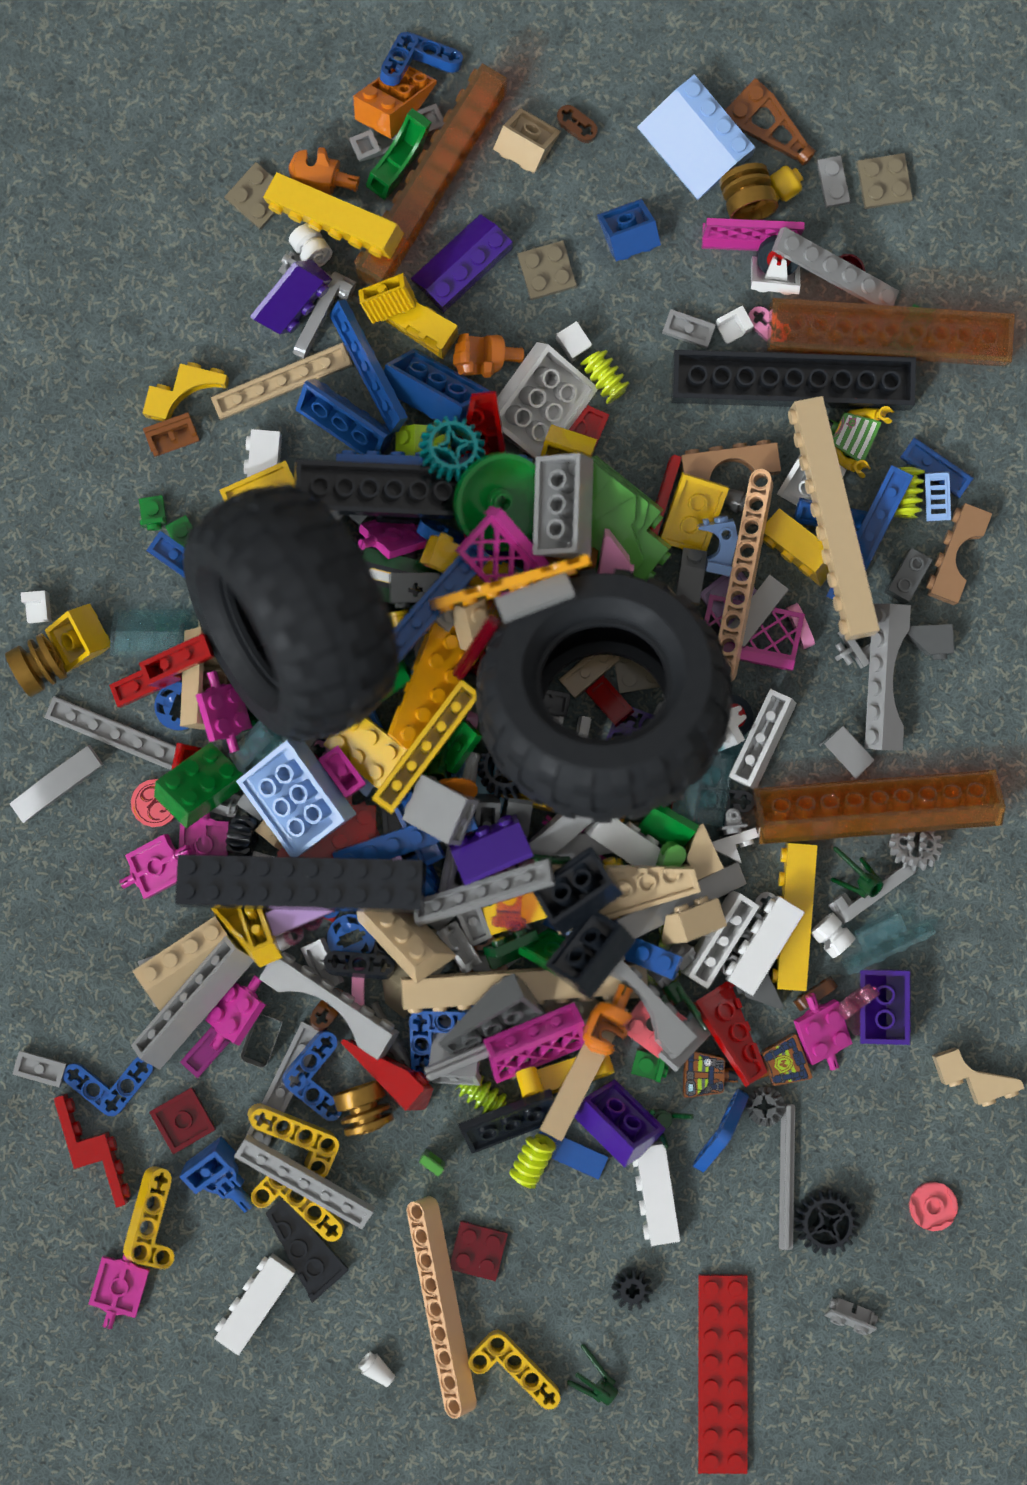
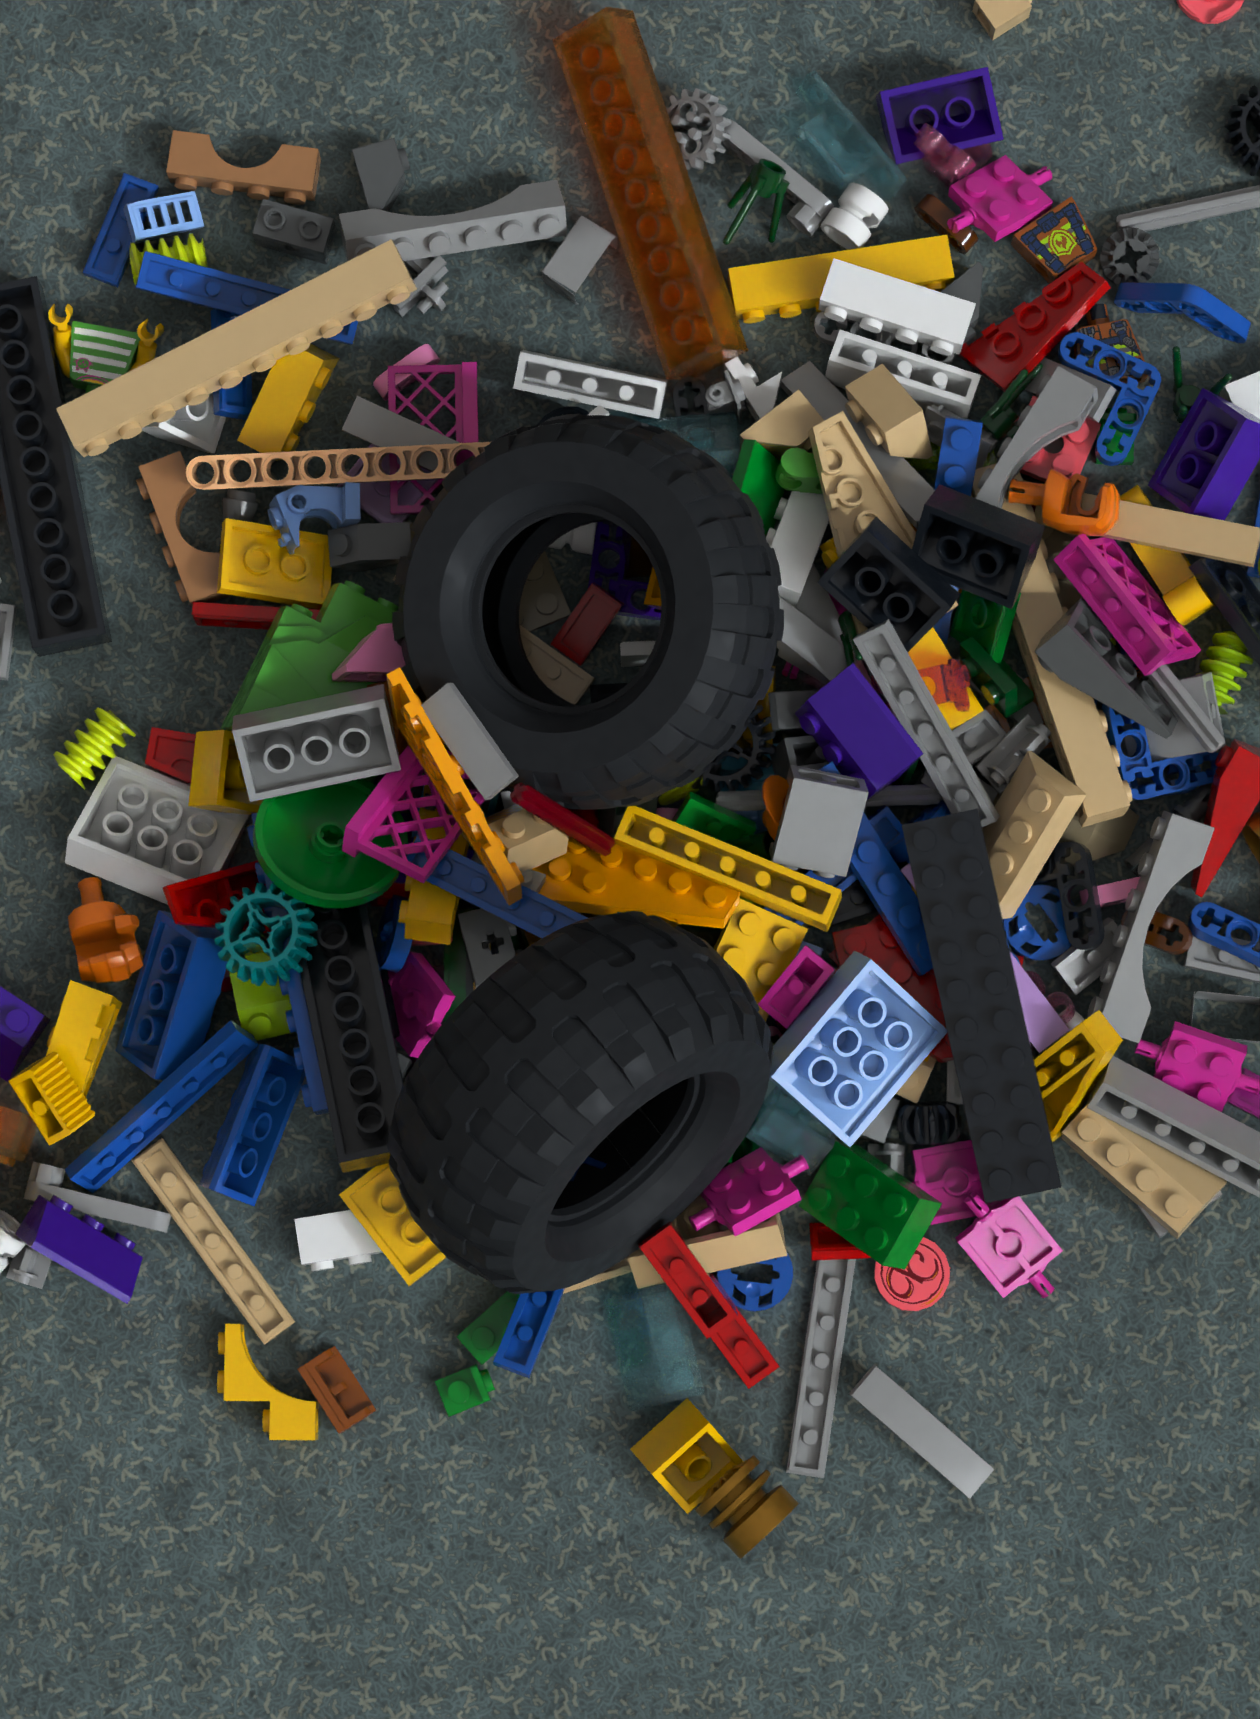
camera: 100 degrees left, 5 degrees down
(37, 606) = (655, 1533): white panel -> none
(573, 341) = (51, 806): white panel -> none
(673, 1080) = (1128, 395): none -> blue beam

